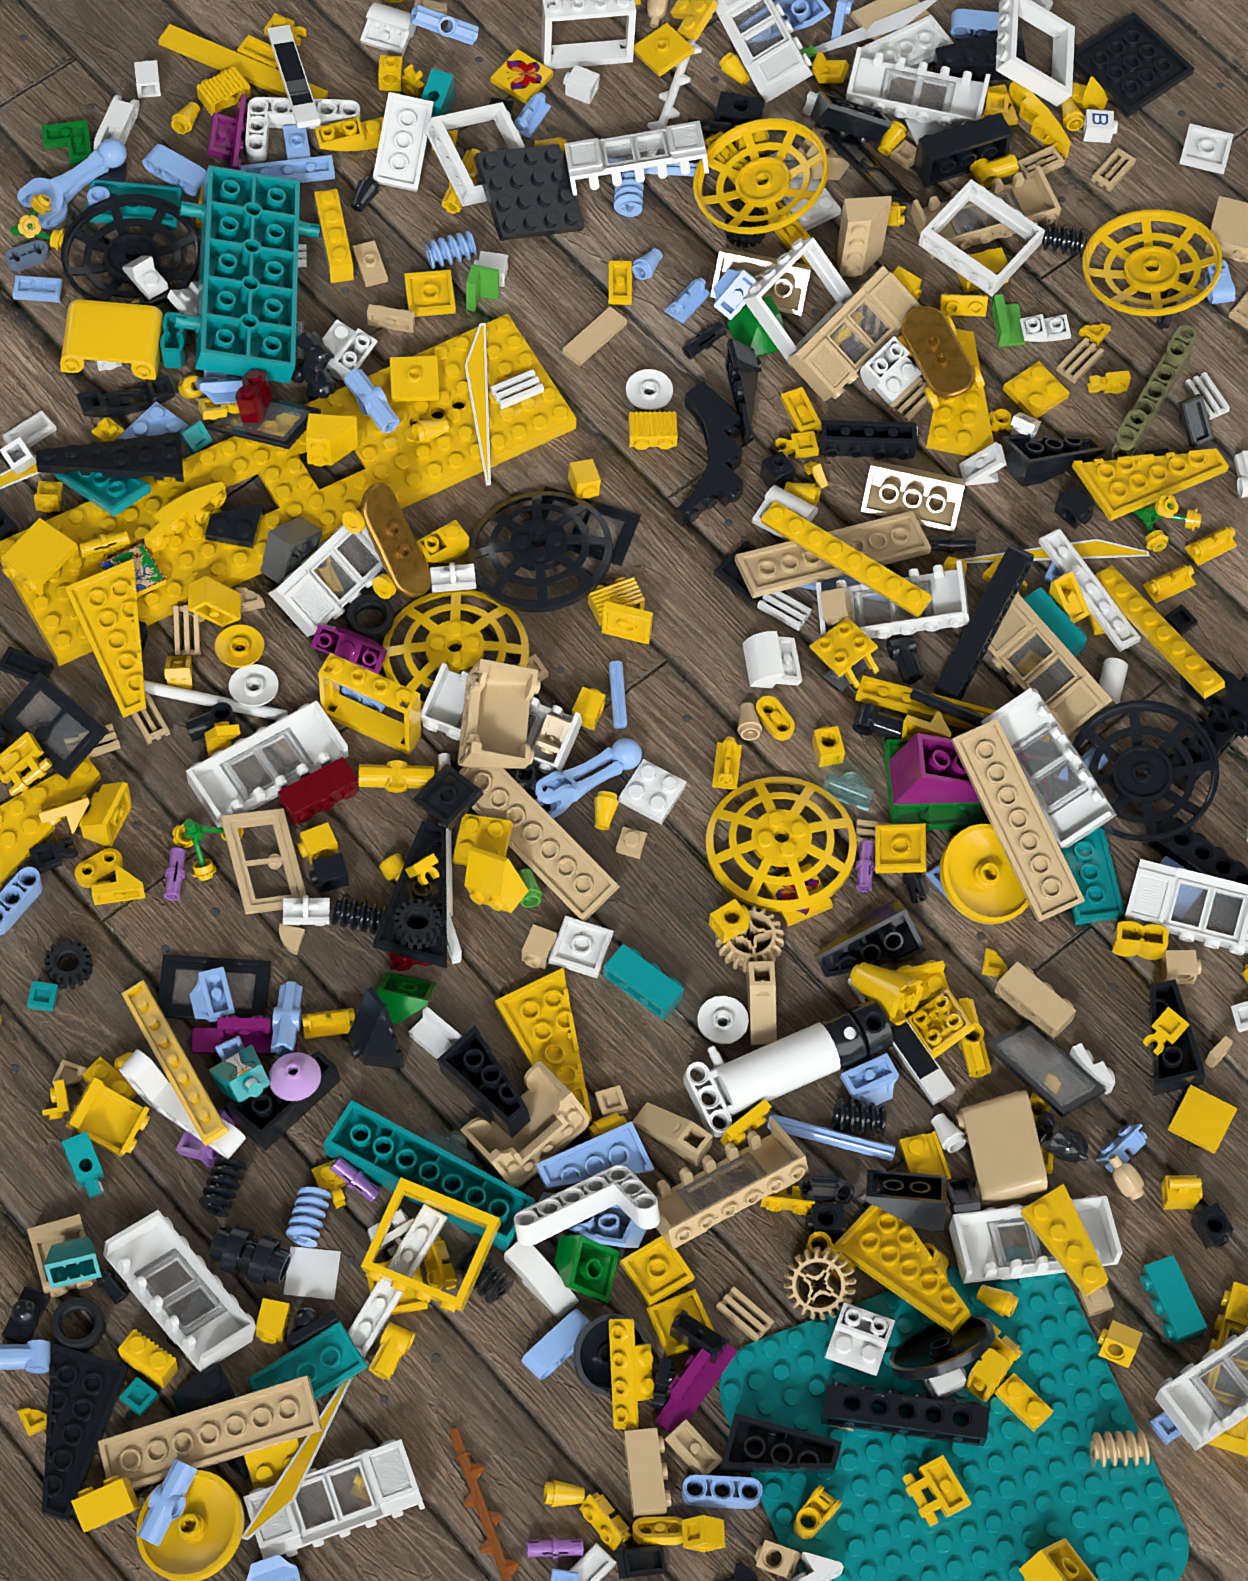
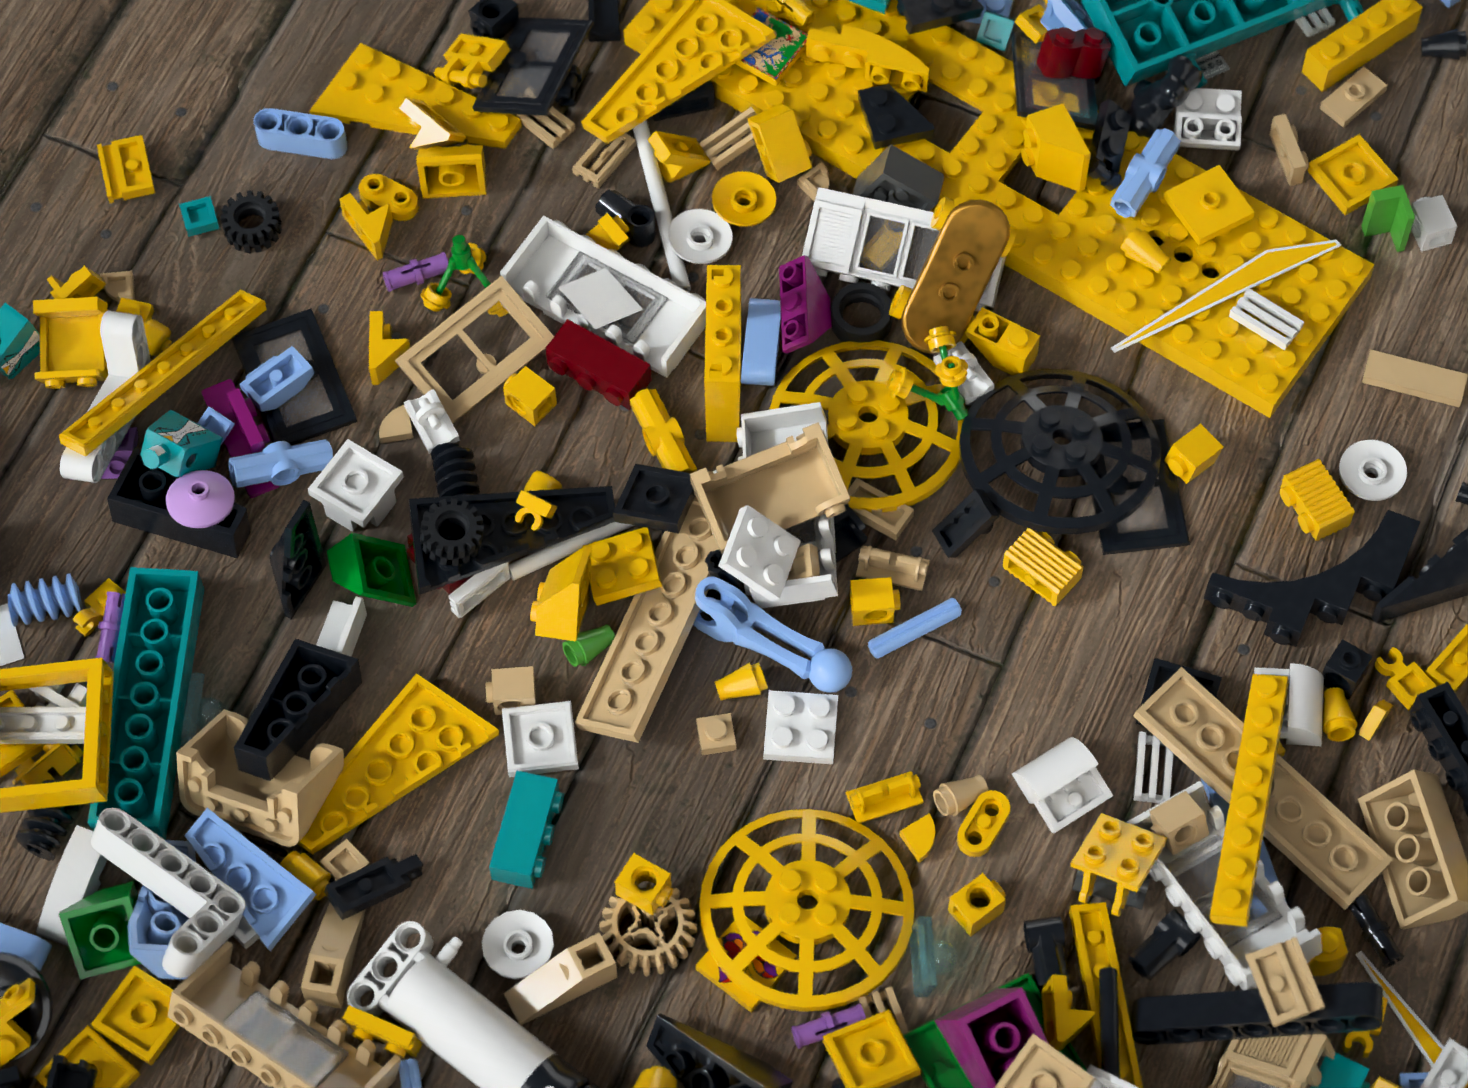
camera: 70 degrees right, 0 degrees up
(49, 856) = (377, 141): black plate -> none
(220, 1186) = (42, 496): black piece -> none
(230, 923) = (382, 348): none -> yellow slope
(270, 765) = (600, 298): none -> white sticker
(324, 401) = (1108, 144): none -> black plate
(327, 1023) = (292, 496): yellow hinge -> none
(329, 873) = (497, 424): black brick -> none
(332, 978) = (356, 487): none -> white panel
(450, 248) = (1424, 166): light blue piece -> none
(466, 577) = (951, 372): none -> yellow plant
(543, 743) = (759, 553): none -> white plate
(565, 627) = (966, 523): none -> black tile
(568, 686) = (904, 569): none -> tan hinge
(627, 622) = (1011, 587): yellow plate -> none
(638, 1090) = (372, 884): none -> black hinge
(764, 758) = (919, 837): none -> yellow tile
(984, 591) = (1284, 982): none -> tan plate

